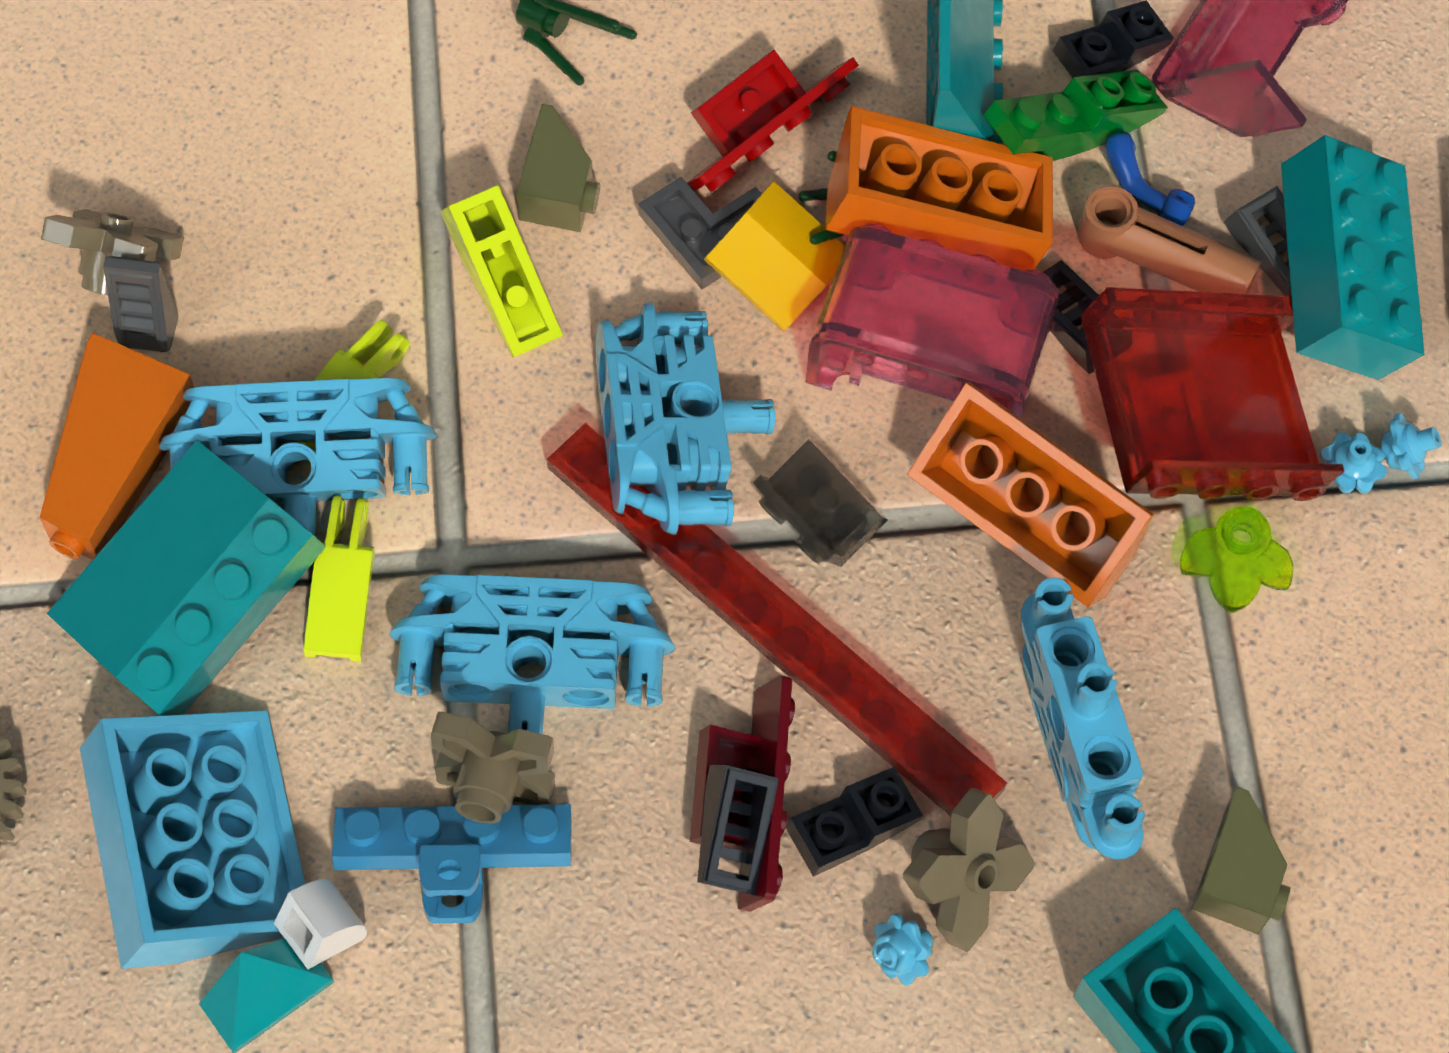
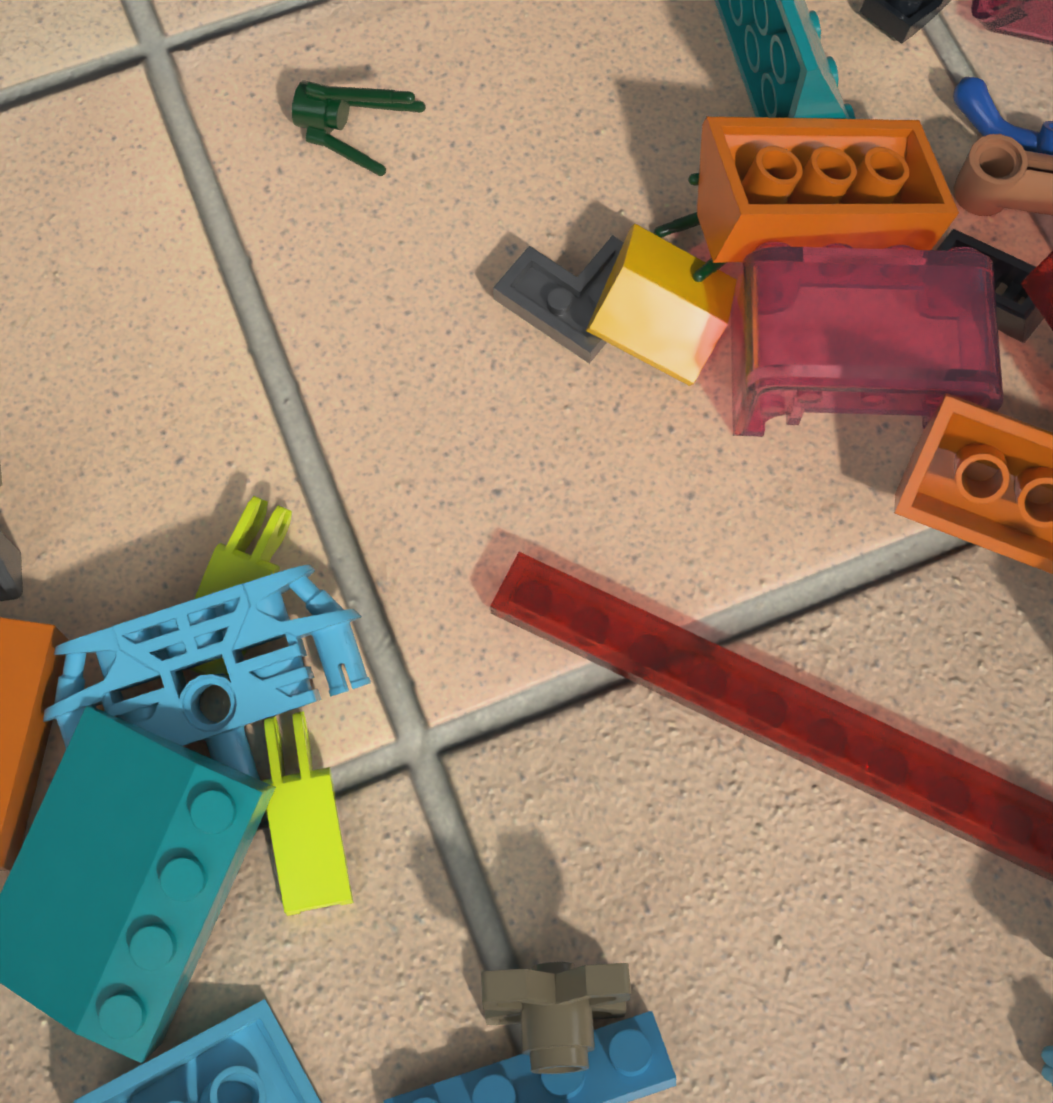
camera: 15 degrees left, 5 degrees up
(501, 270) = (368, 401): neon yellow slope -> none
(517, 622) = (535, 793): medium azure piece -> none
(556, 177) = (394, 280): olive slope -> none
(692, 440) = (595, 546): medium azure piece -> none
(718, 803) = (864, 946): black slope -> none
(754, 107) = (582, 150): red bracket -> none
(761, 753) = (845, 938): dark red bracket -> none
(820, 505) = (806, 572): clear smoke bracket -> none
(854, 821) = (970, 930): black slope -> none
(1078, 116) = (922, 69): green slope -> none

